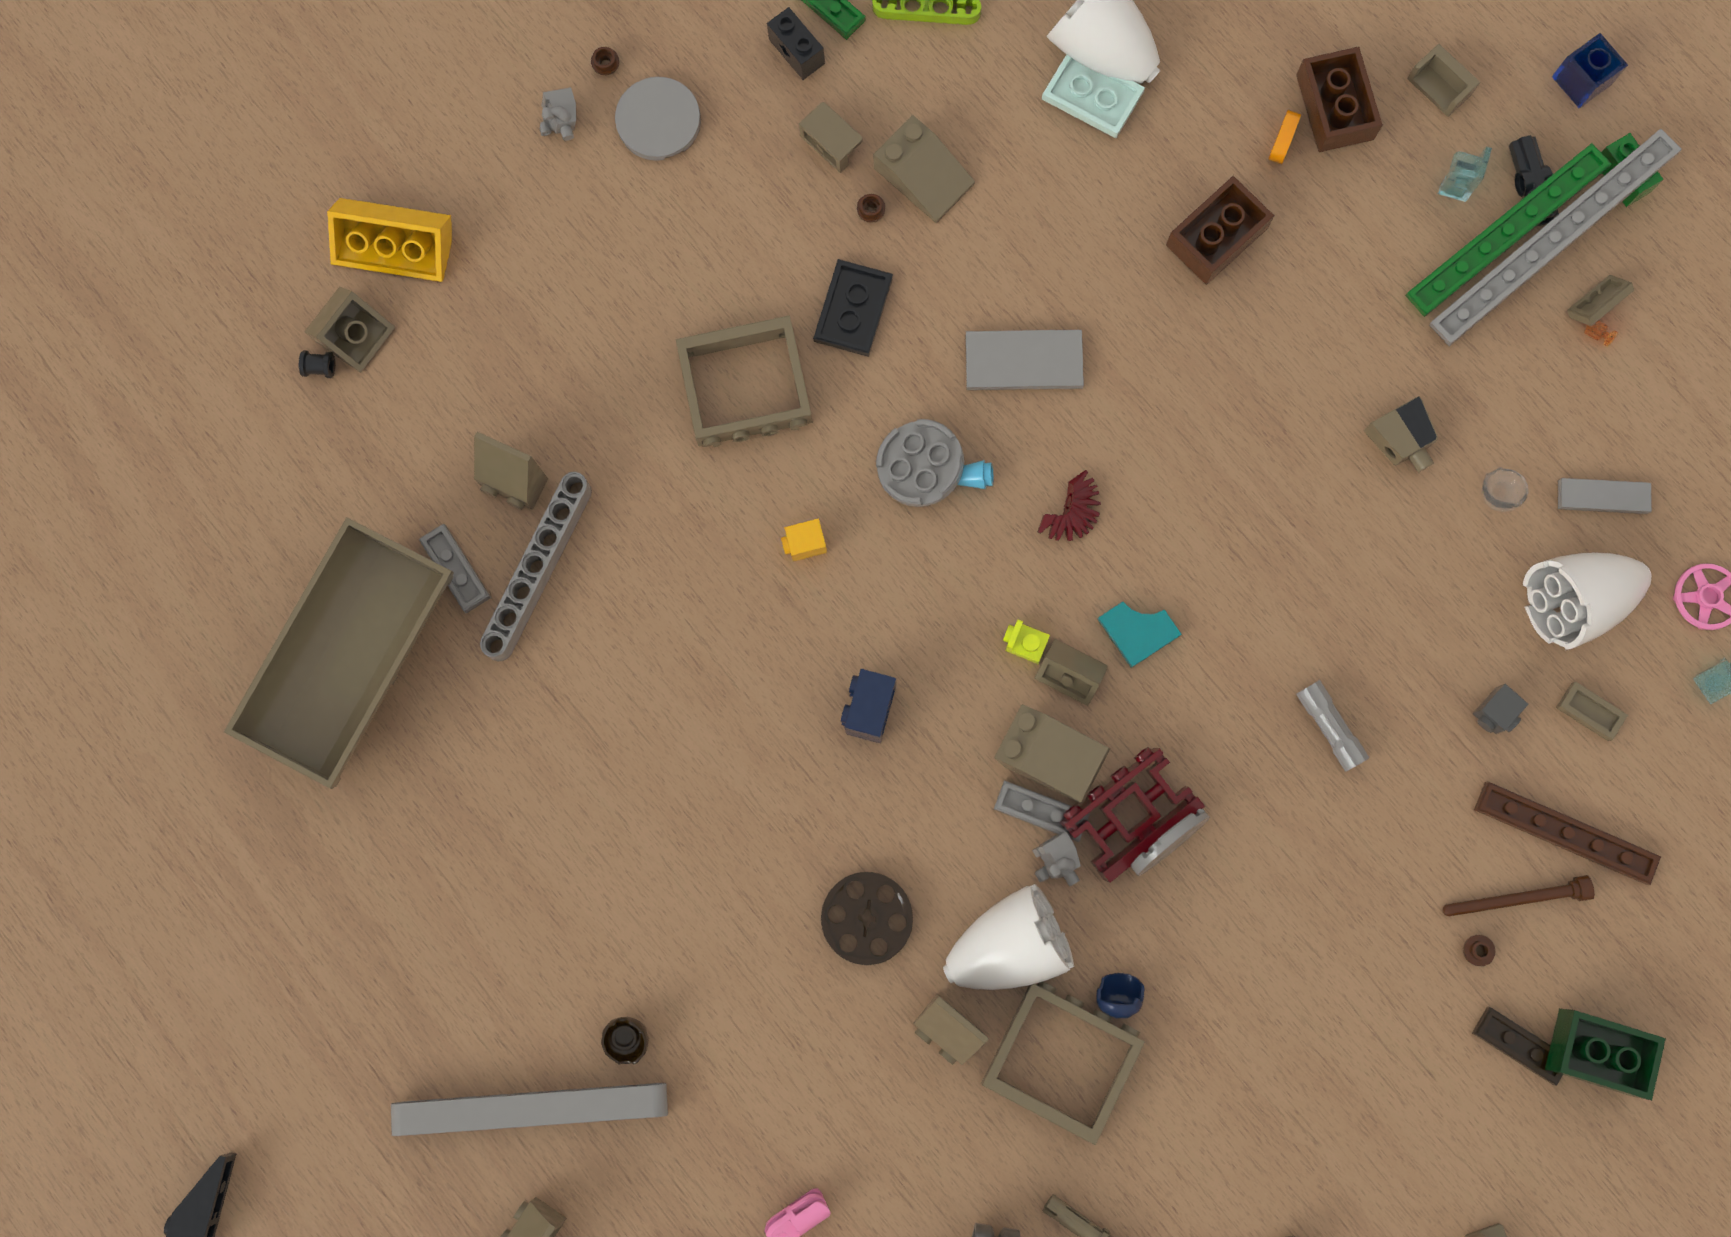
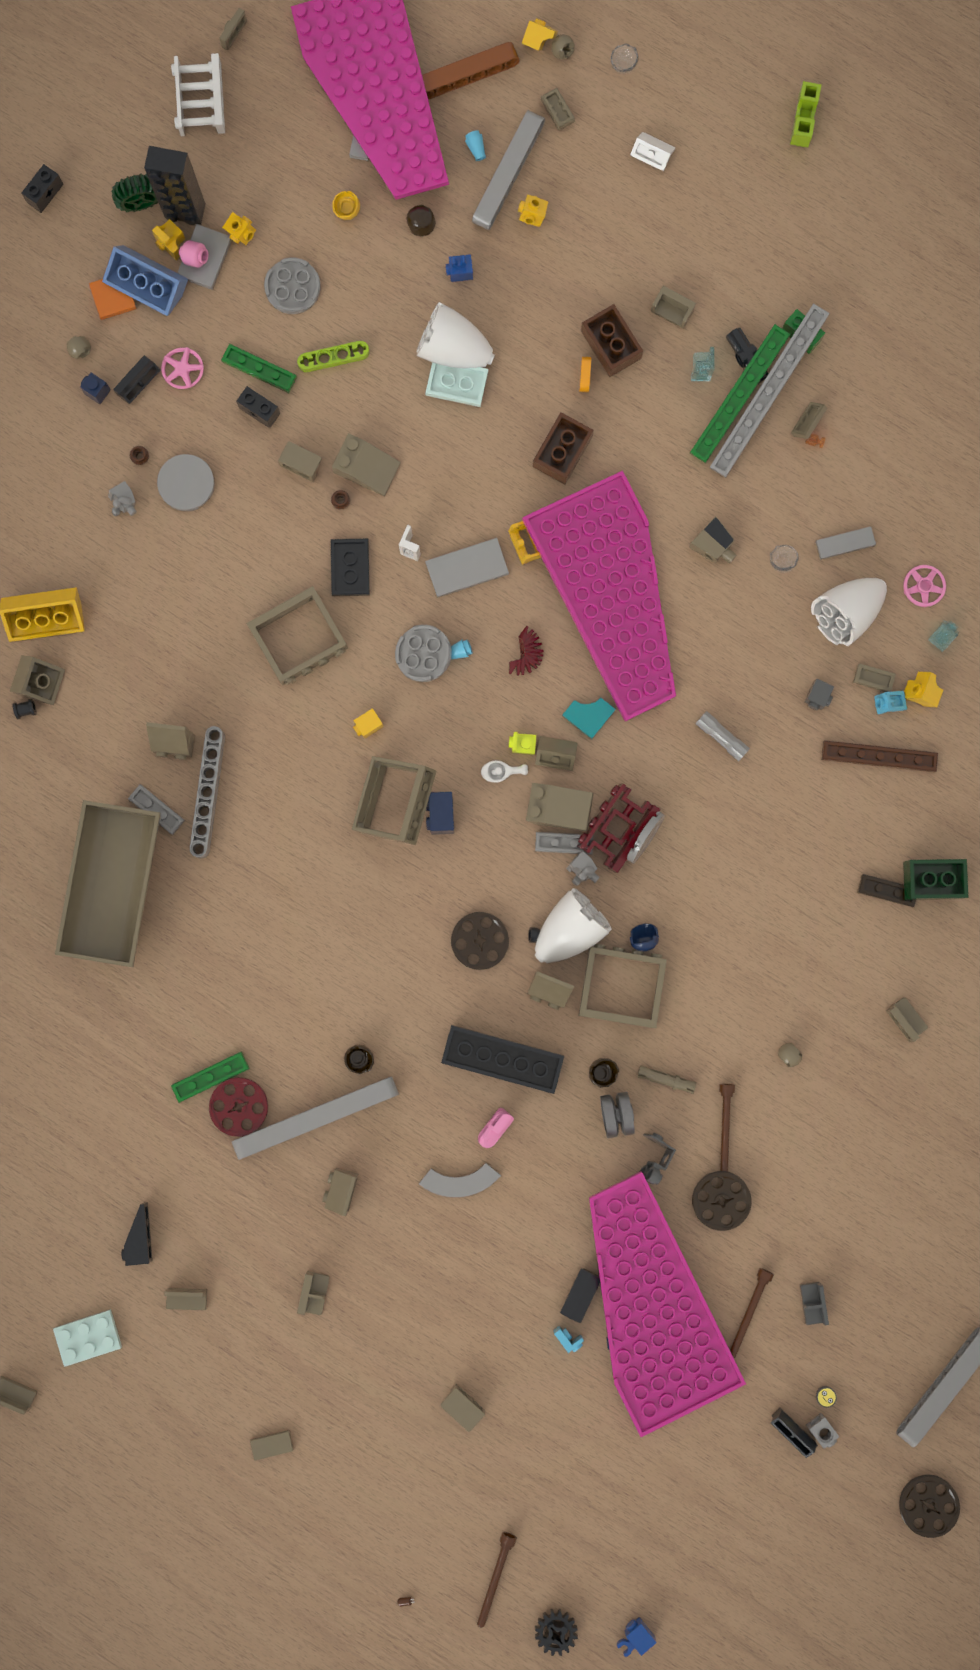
camera: 25 degrees left, 5 degrees up
(395, 992) = (210, 1077): none -> green tile
(412, 1065) = (247, 1111): none -> dark red wedge
(834, 683) = (416, 805): none -> dark tan window
(843, 1114) = (502, 1059): none -> black brick
(946, 302) = (408, 548): none -> white panel
(951, 935) = (533, 934): none -> black hinge
(976, 671) = (498, 771): none -> white piece
(992, 1187) = (603, 1072): none -> dark brown hair
(1138, 336) = (519, 543): none -> yellow window
(1228, 444) = (608, 579): none -> dark pink wing
(1470, 954) = (841, 842): reddish brown plate -> none
(1580, 889) = (895, 787): reddish brown piece -> none
(1589, 70) = (761, 274): clear blue head -> none
(1607, 755) = (890, 702): none -> medium azure bracket
(1666, 753) = (923, 690): none -> yellow brick

